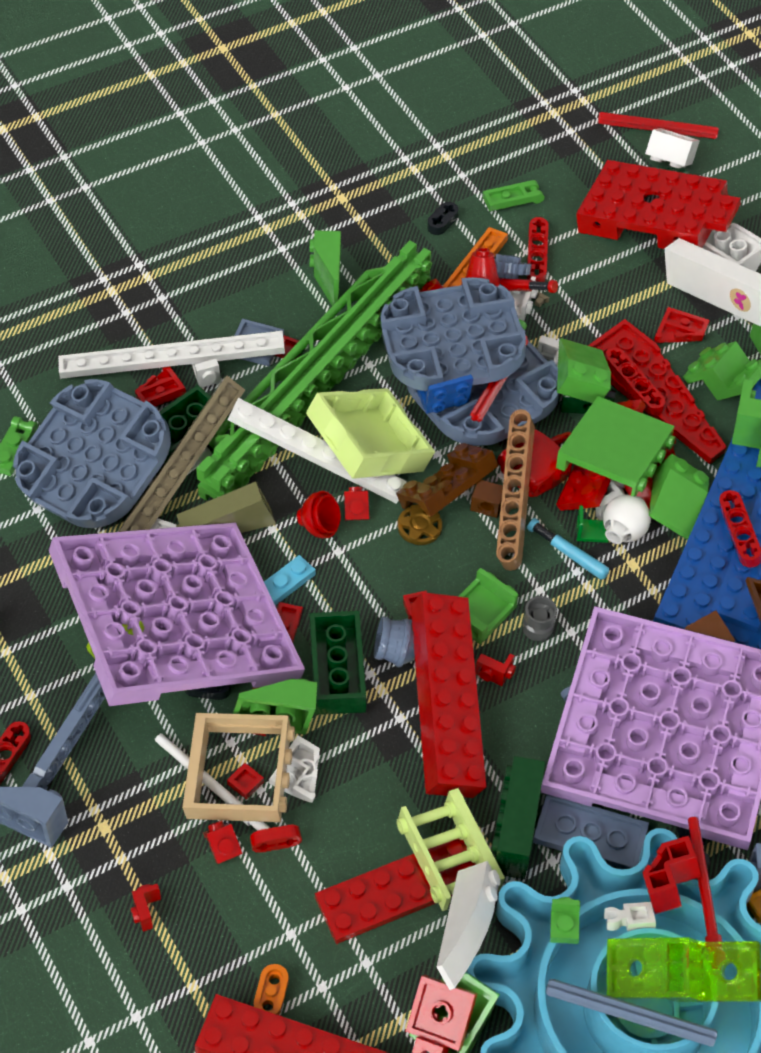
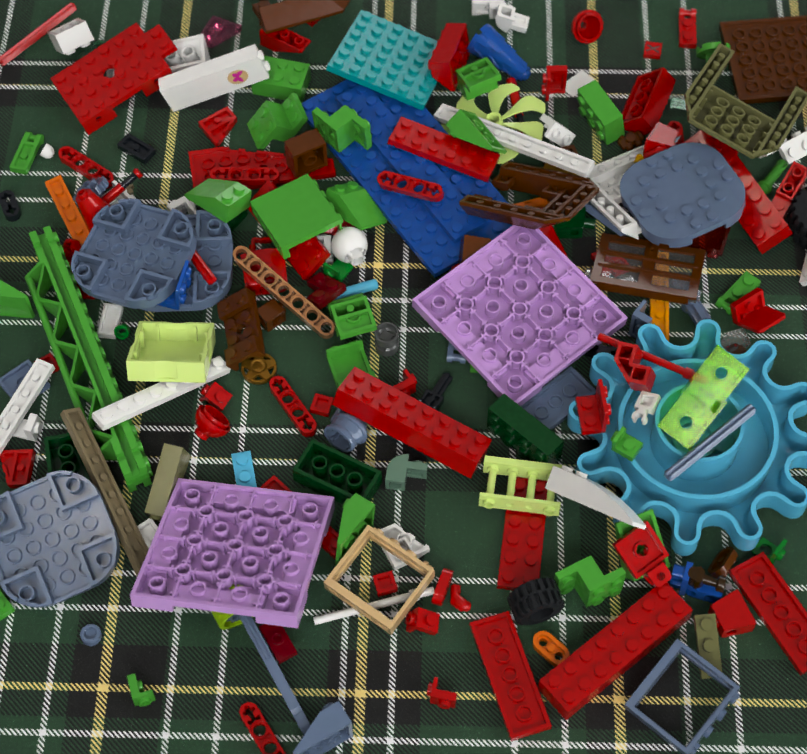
camera: 55 degrees left, 5 degrees up
(21, 550) = (90, 634): none -> sand blue tile
(106, 719) = (278, 642): none -> dark red brick
(211, 966) = (510, 676): none -> red plate
(270, 863) = (458, 601): none -> red arm
(311, 938) = (535, 601): none -> black tyre
(366, 383) = (123, 334): none -> green hinge
(373, 371) = (109, 320): none -> white tile
(375, 984) = (590, 581): none -> bright green bracket
(389, 719) = (401, 468): none -> sand green brick
(396, 579) = (290, 407): none -> red beam
(497, 705) = (434, 398): none -> black connector
(528, 210) = (47, 152): none -> white hinge
(538, 568) = (352, 316): none -> bright green bracket
(558, 531) = (325, 289): none -> dark red plate
(581, 862) = (594, 411): none -> red bracket
(592, 276) = (136, 148): none -> black plate
(702, 413) = (306, 153): none -> reddish brown brick

